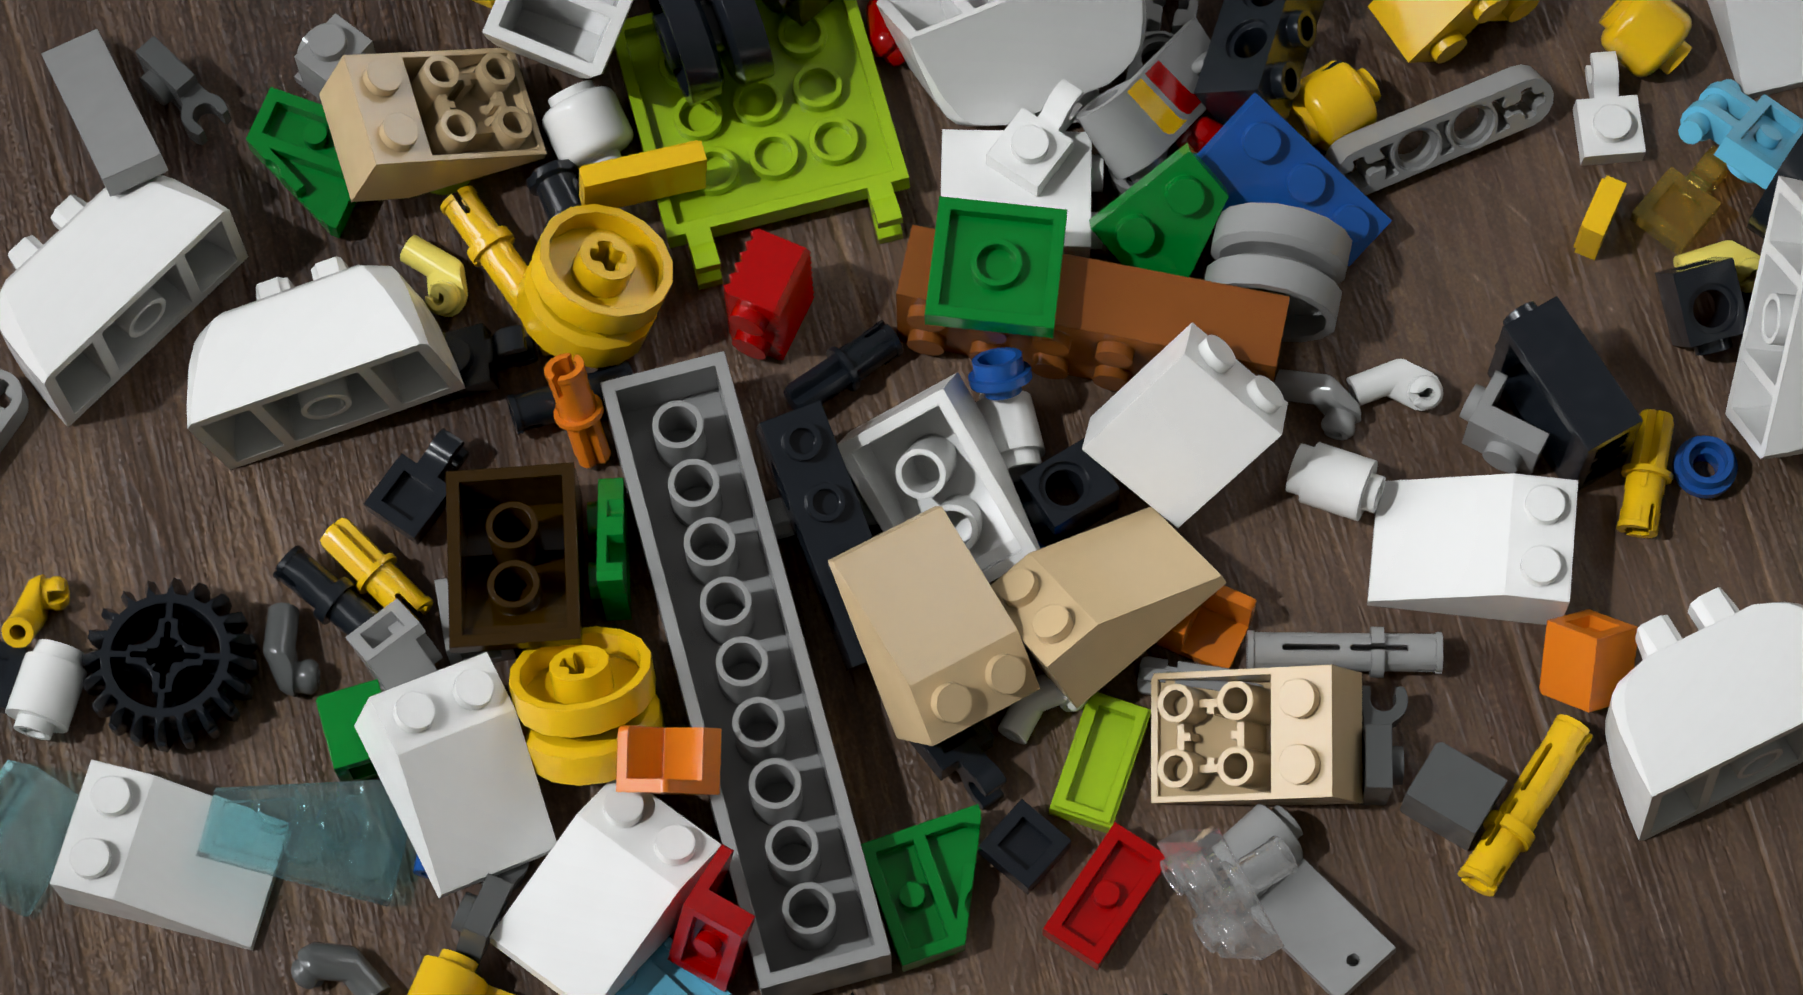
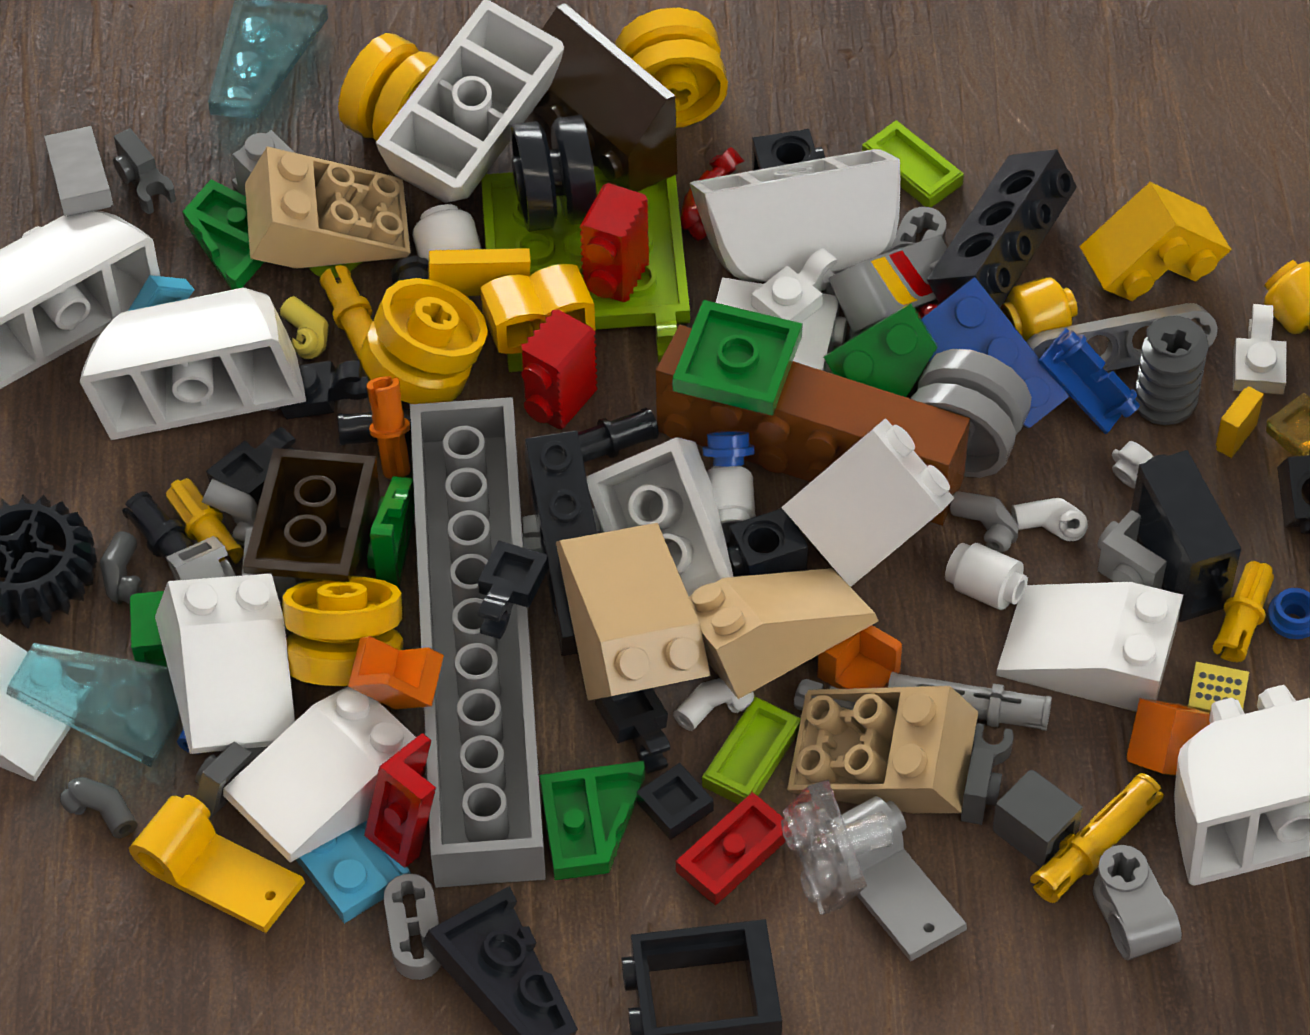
camera: 10 degrees right, 15 degrees down
(241, 263) = (161, 290): none -> medium azure tile
(412, 546) = (234, 502): none -> light grey arm
(713, 216) = (520, 303): none -> yellow brick
(779, 611) = (509, 579): none -> black plate
(805, 115) = (615, 242): none -> red brick
(1411, 195) = (1082, 376): none -> blue hinge
(1484, 297) = (1128, 462): none -> white plate
(1510, 170) = (1171, 370): none -> dark grey piece
(1588, 894) = (1133, 903): none -> light grey piece
(1632, 586) = (1216, 683): none -> light yellow tile

